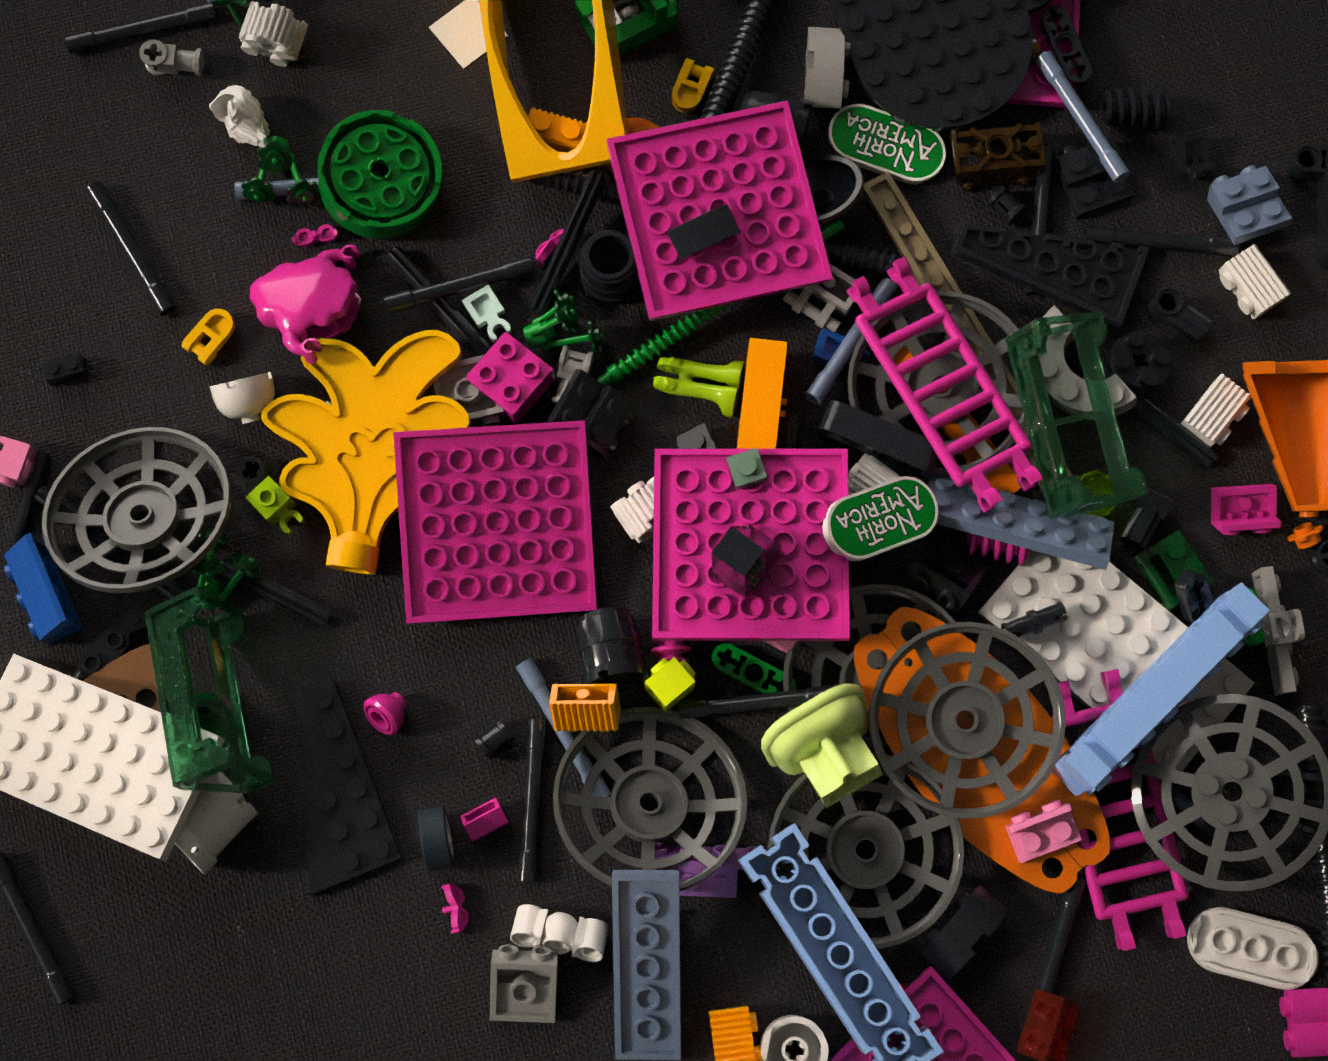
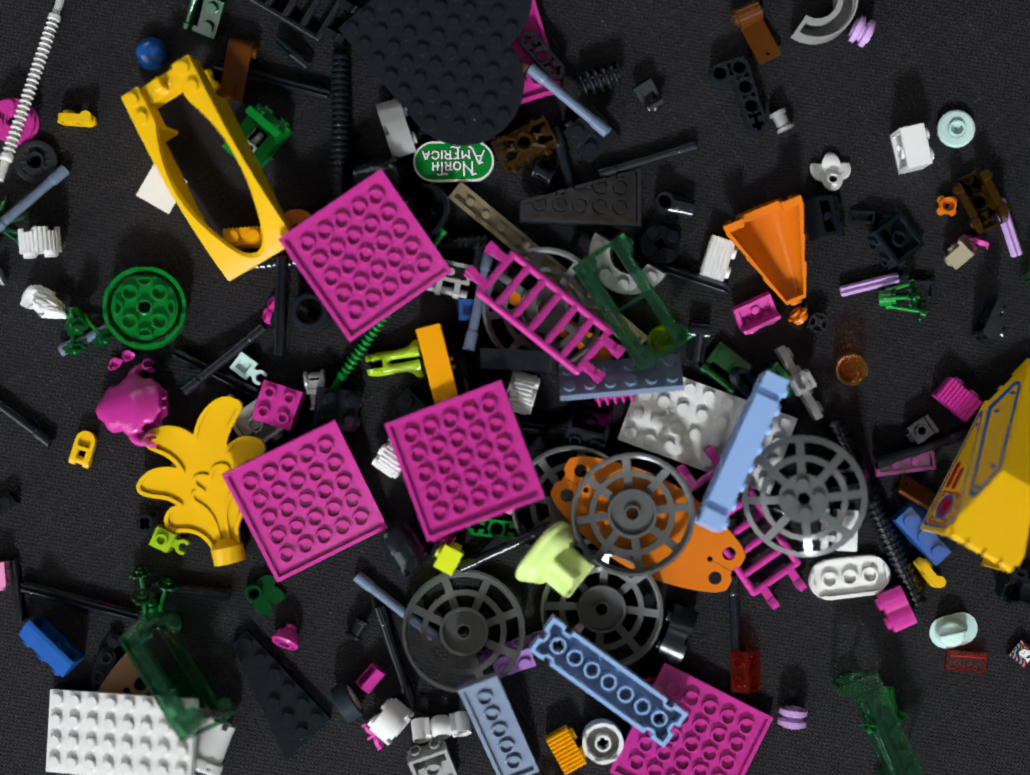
camera: 20 degrees left, 10 degrees up
(129, 502) = (77, 576): dark grey dish -> none
(244, 397) = (121, 480): white cylinder -> none
(382, 642) = (267, 594): none -> dark green plate
(489, 892) = (391, 720): none -> white brick
(542, 331) = (297, 357): plant -> none
(585, 707) = (403, 592): light orange brick -> none
(689, 94) = (316, 178): yellow plate -> none
(704, 231) = (361, 276): black slope -> none
(743, 559) = (464, 475): black wedge -> none
(746, 468) = (444, 416): sand green plate -> none
(880, 518) = (536, 415): tile -> none
(1036, 621) = (652, 435): black pin -> none
(1042, 832) = (701, 560): bright pink bracket -> none
(1248, 204) = (693, 116): sand blue plate -> none
(1253, 282) = (713, 166): white brick -> none
(1271, 896) = (848, 521): none -> white brick

